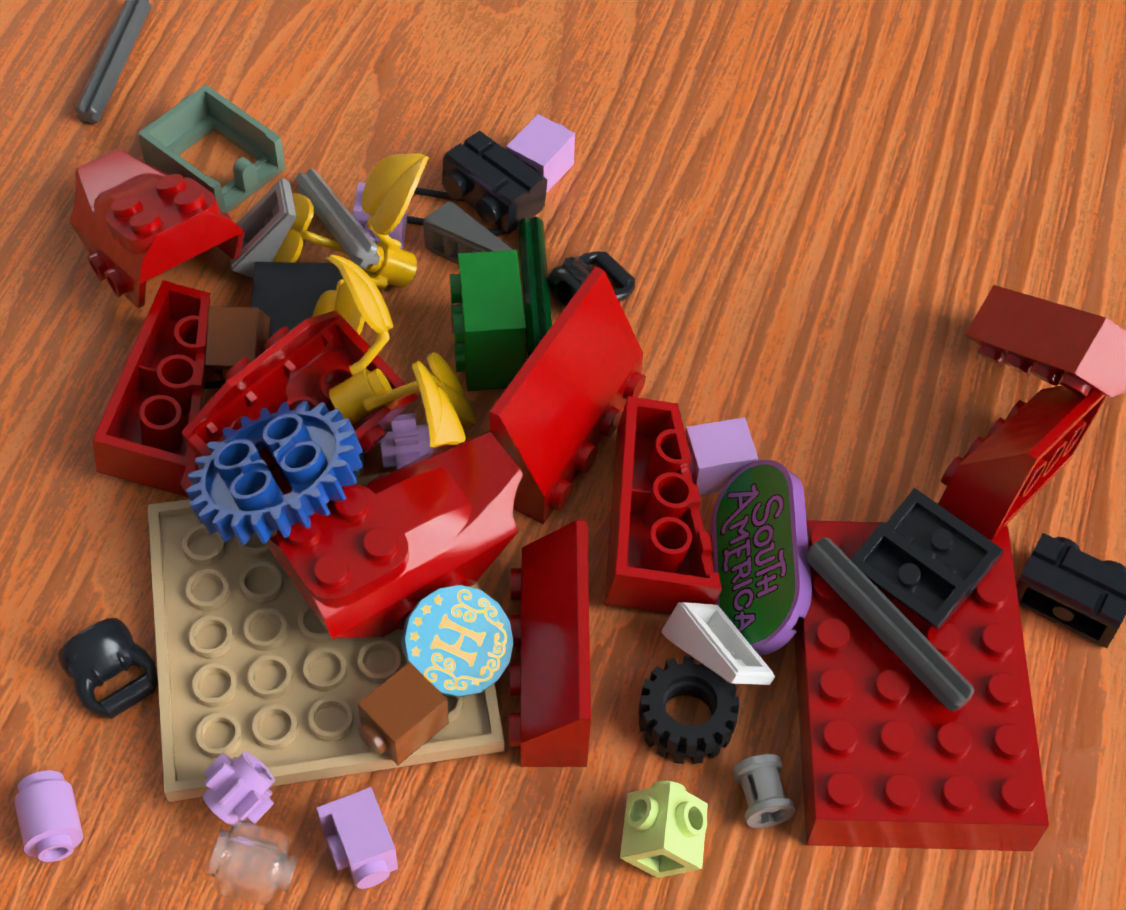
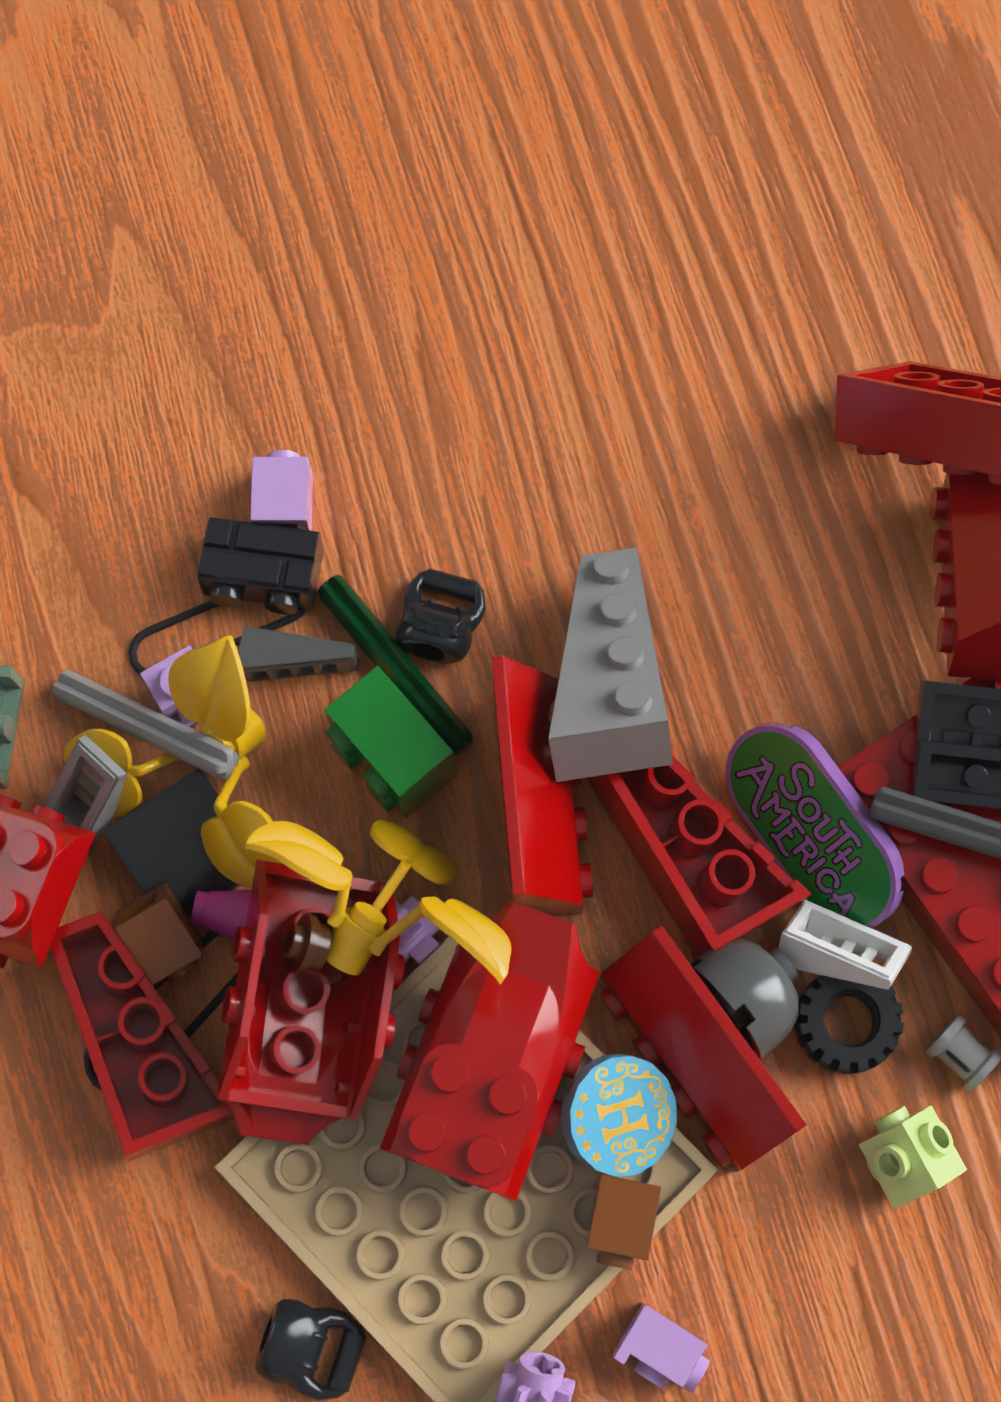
camera: 30 degrees left, 20 degrees up
(237, 491) = (329, 1142): blue gear -> none
(323, 375) = (306, 944): none -> reddish brown plate
(623, 628) = (752, 991): none -> dark grey cylinder
(675, 358) = (609, 684): none -> light grey wedge
(719, 452) = (703, 734): lavender brick -> none

